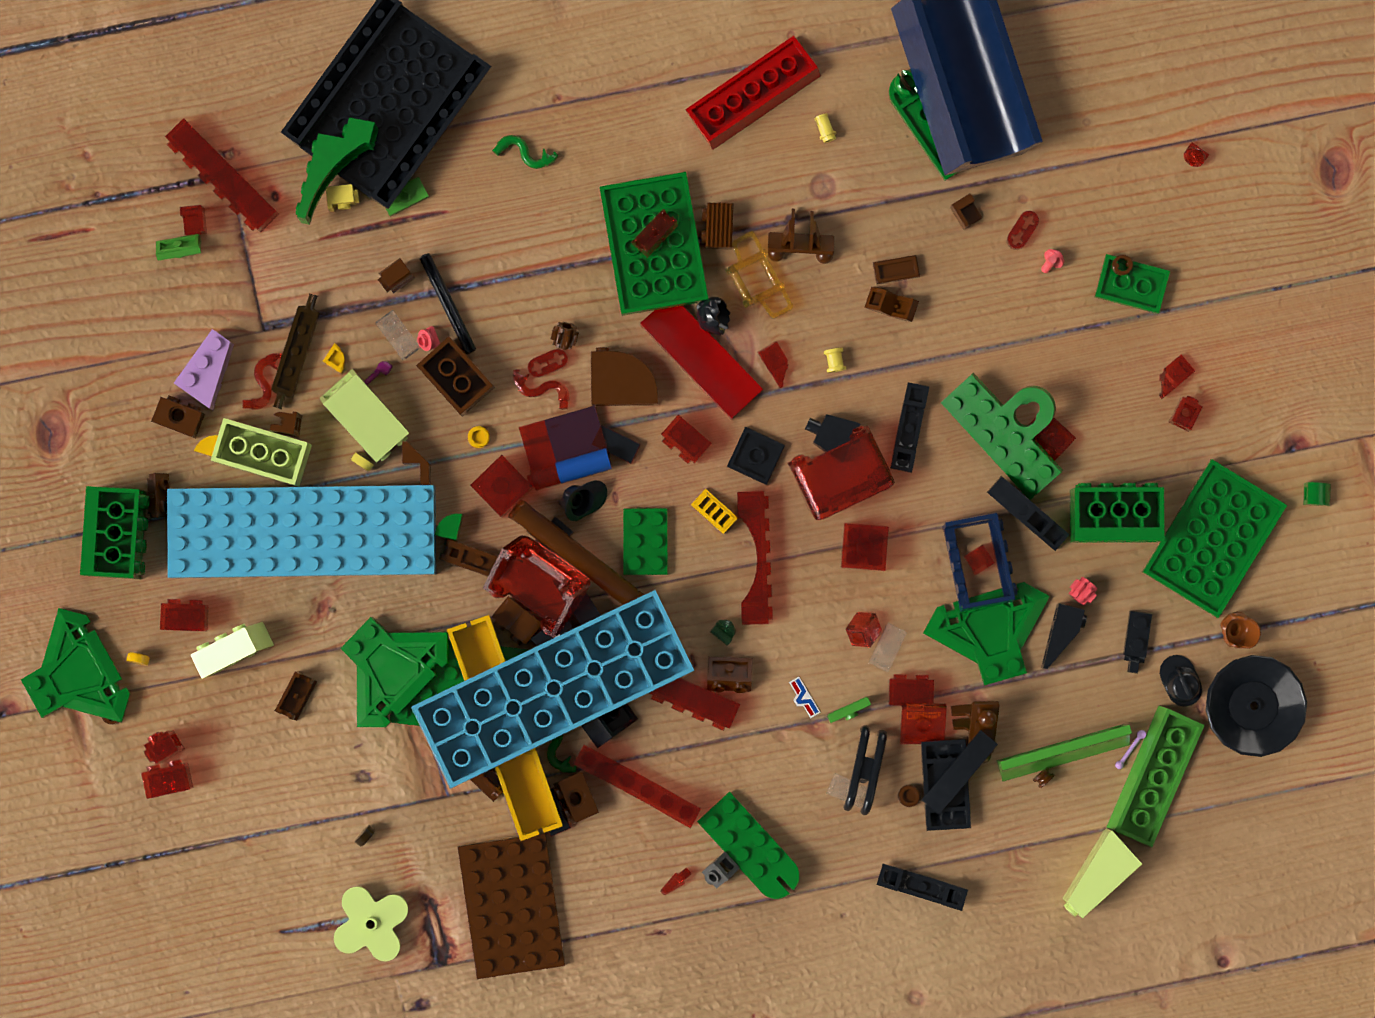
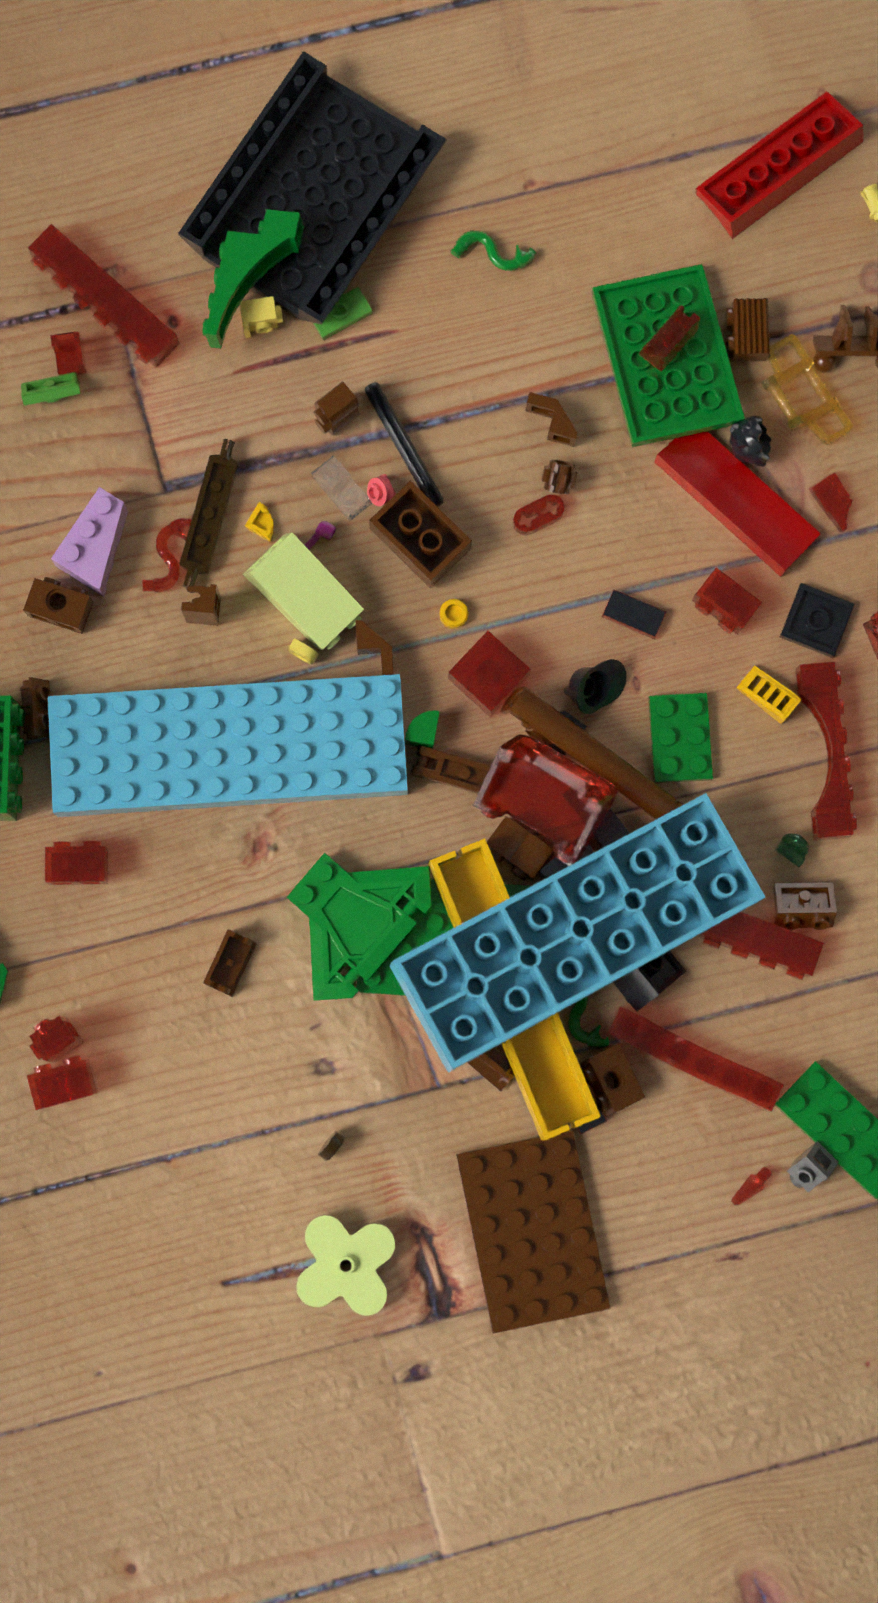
camera: 10 degrees left, 5 degrees down
(137, 658) = (17, 924): yellow tile -> none
(206, 445) = (100, 641): yellow tile -> none
(231, 648) = (140, 904): yellowish green wedge -> none
(261, 452) = (170, 644): yellowish green brick -> none
(563, 393) = (560, 551): clear red animal -> none
(565, 448) = (568, 621): door -> none
(567, 295) = (561, 428): none -> reddish brown slope
(621, 380) = (636, 530): reddish brown brick -> none

